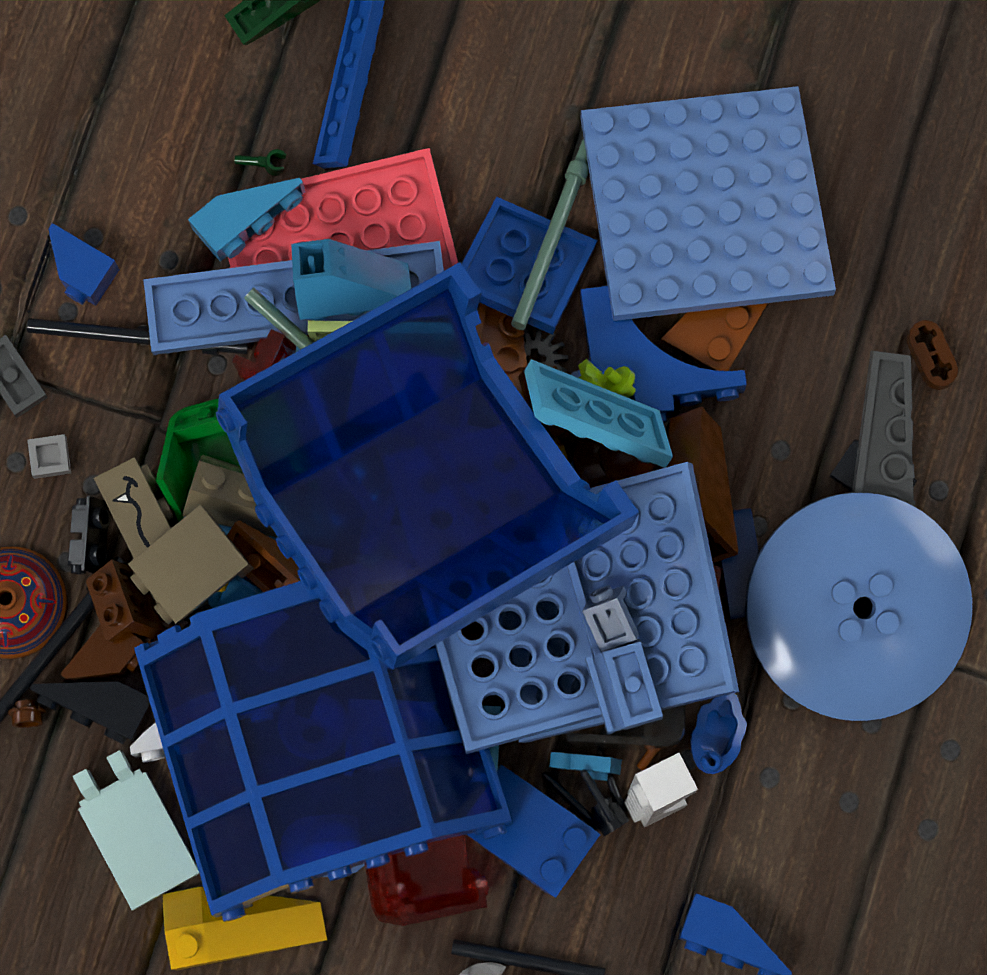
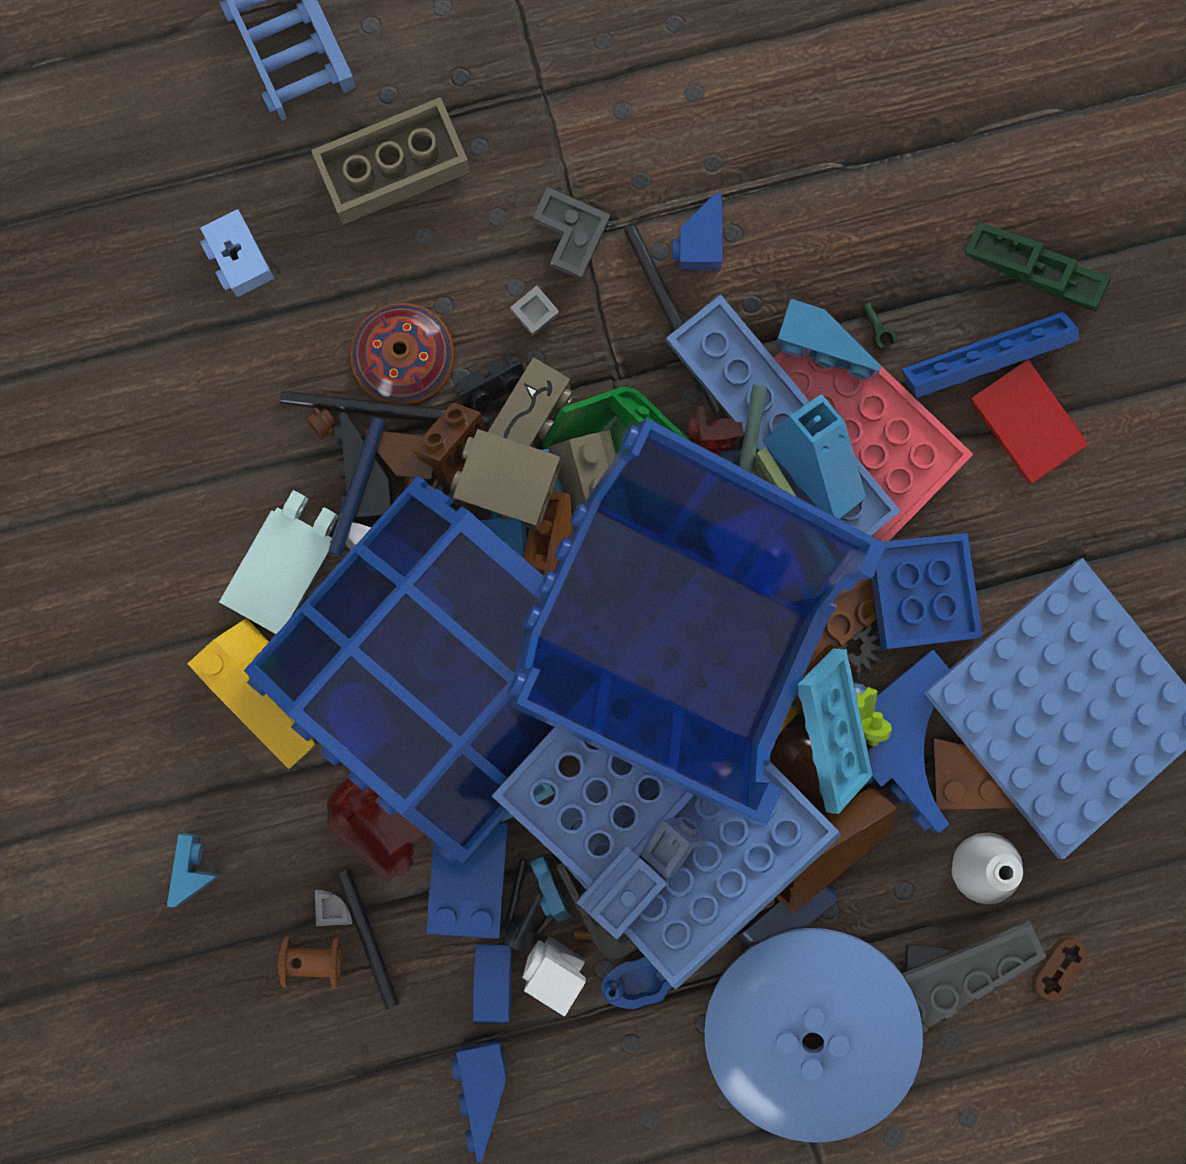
camera: 50 degrees right, 5 degrees up
(107, 713) = (356, 486): none -> dark blue bar
(431, 83) = (1028, 422): none -> red tile
(575, 175) = (1025, 587): sand green bar -> none
(639, 868) = (492, 984): none -> blue slope
(805, 363) = (987, 868): none -> white cone

